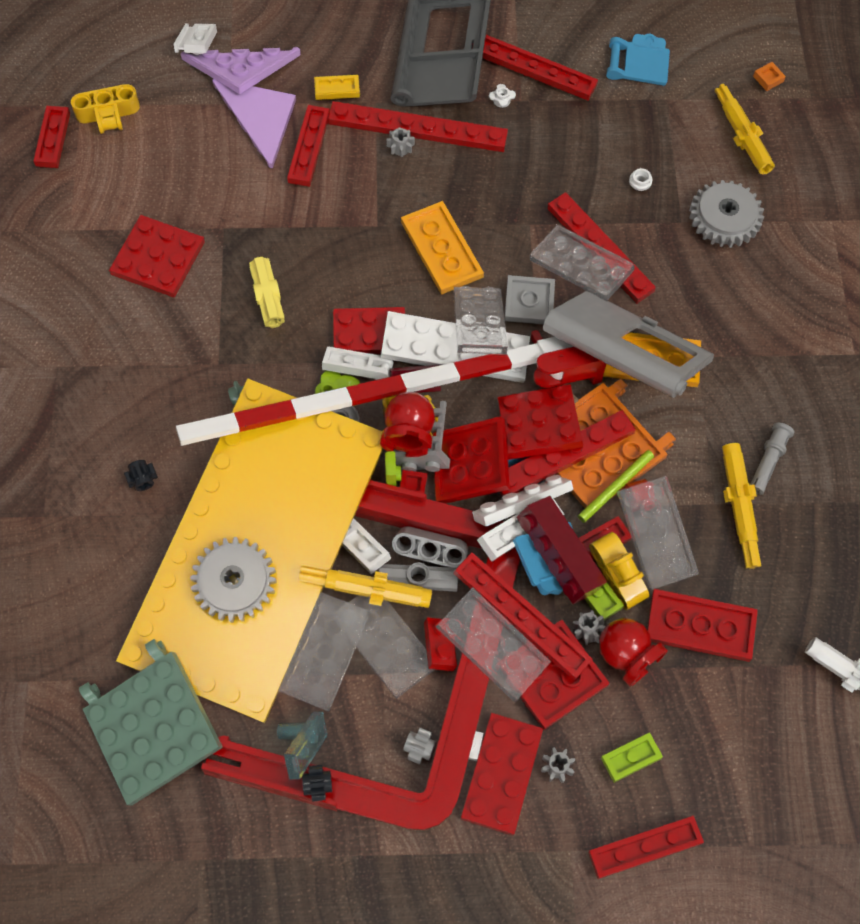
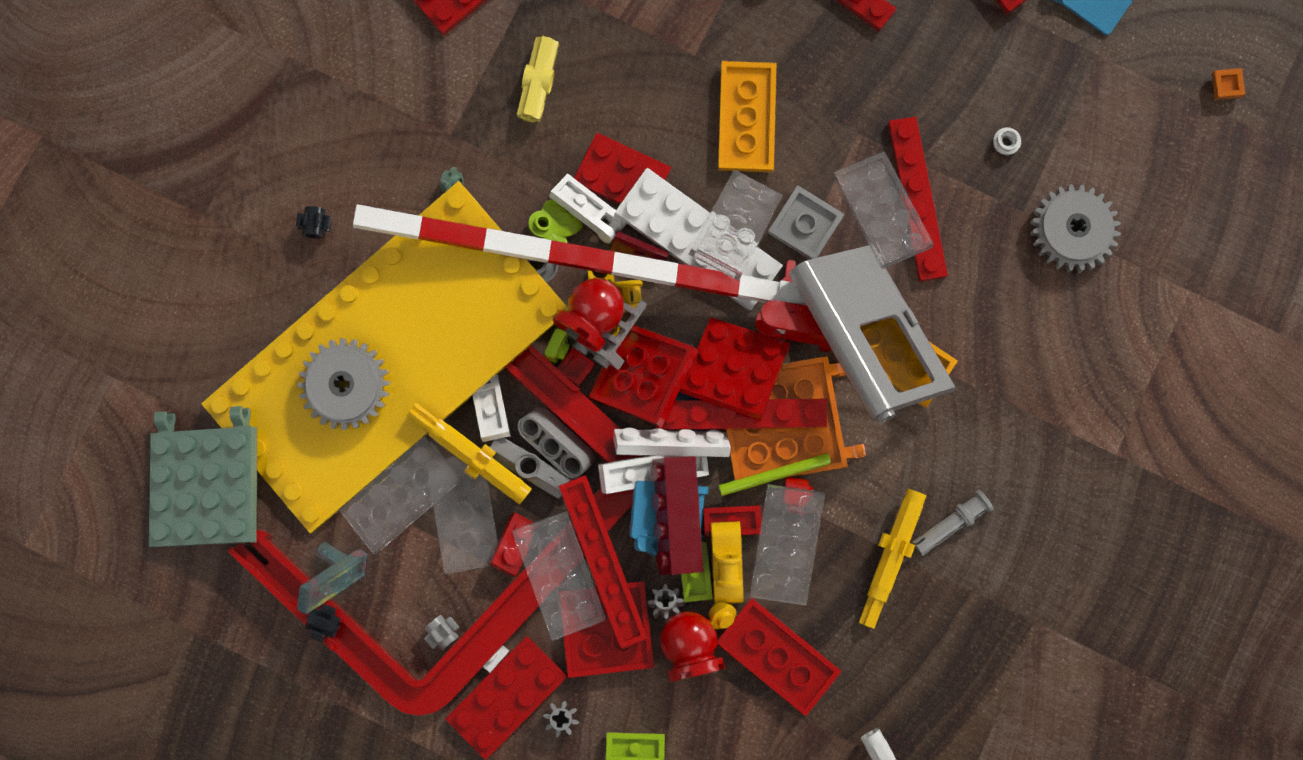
camera: 25 degrees right, 15 degrees up
(639, 612) = (722, 615): none -> yellow plate
(746, 132) = (1156, 144): yellow piece -> none

